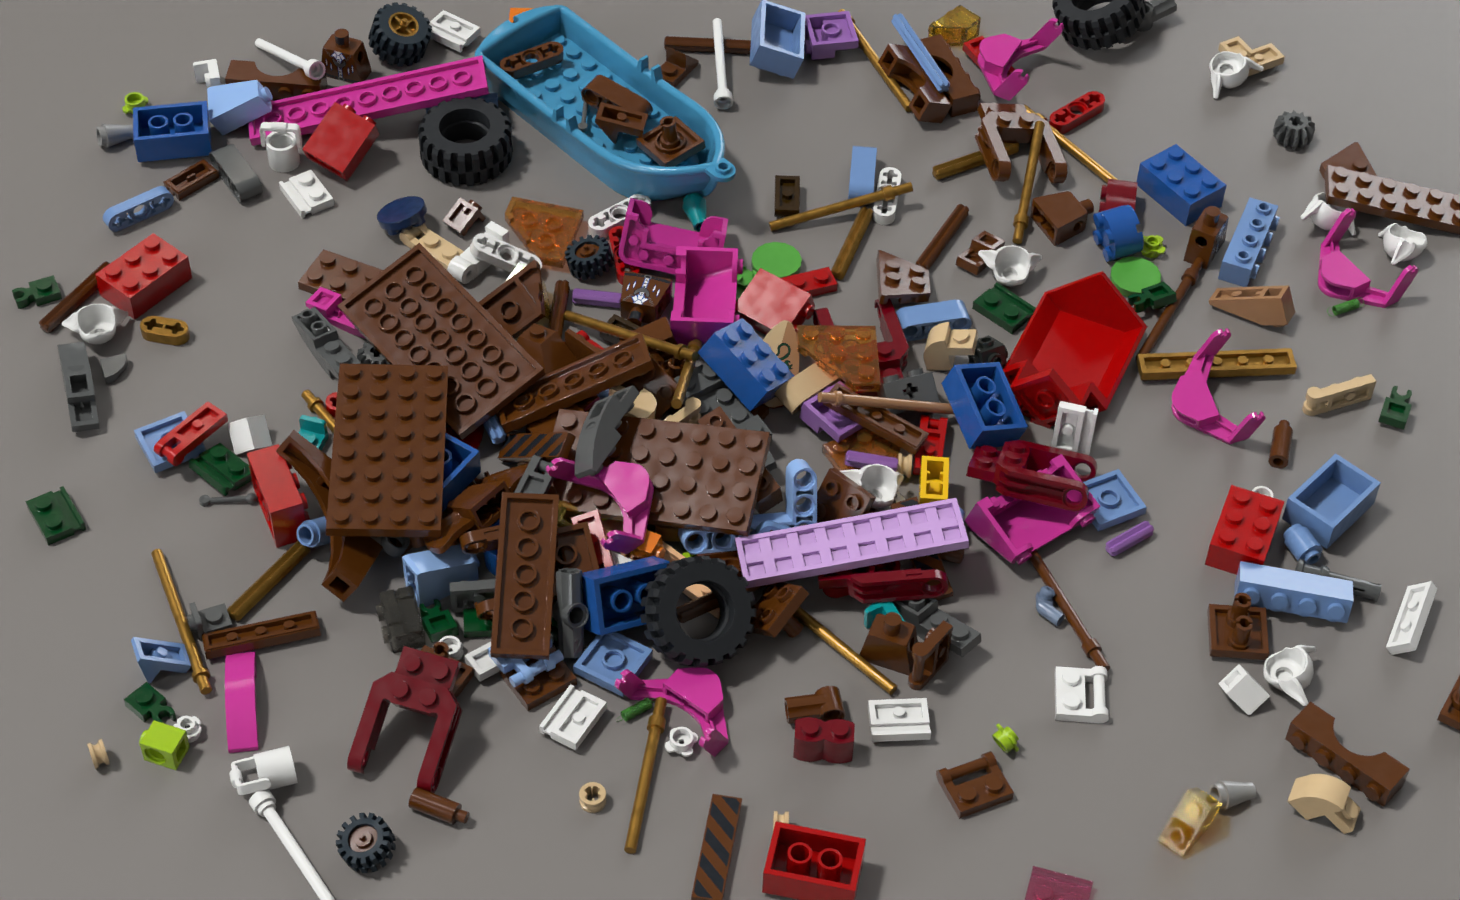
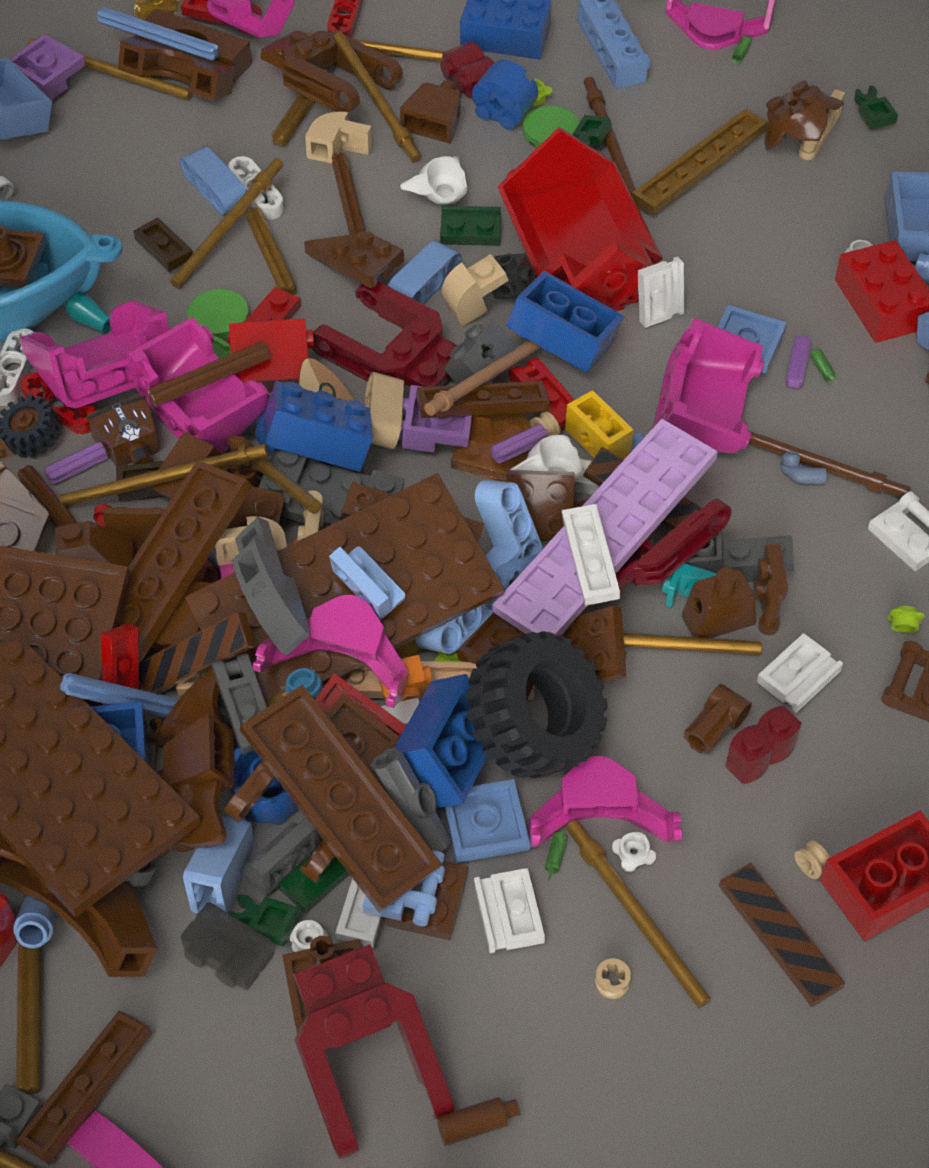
camera: 40 degrees left, 5 degrees up
(470, 437) = (115, 694): none -> medium blue axle
(488, 425) = (120, 656): none -> red plate
(575, 504) = (306, 677): none -> dark azure plate
(661, 466) = (367, 580): none -> light blue bracket
(719, 291) = (209, 373): none -> reddish brown axle
(818, 546) = (590, 554): none -> white plate
(843, 352) = (392, 354): clear orange plate -> none
(971, 260) = (394, 198): reddish brown slope -> none
(972, 190) = (335, 132): none -> tan brick
(1017, 476) = (649, 362): dark red plate -> none
(1145, 552) = (823, 365): none -> bright green piece
(1194, 403) = (724, 205): dark pink piece -> none
(1211, 226) = (576, 41): reddish brown torso -> none
(1258, 304) = (677, 88): medium nougat slope -> none
(1280, 445) = (824, 197): reddish brown cylinder -> none
(1315, 372) = (799, 113): none -> reddish brown brick

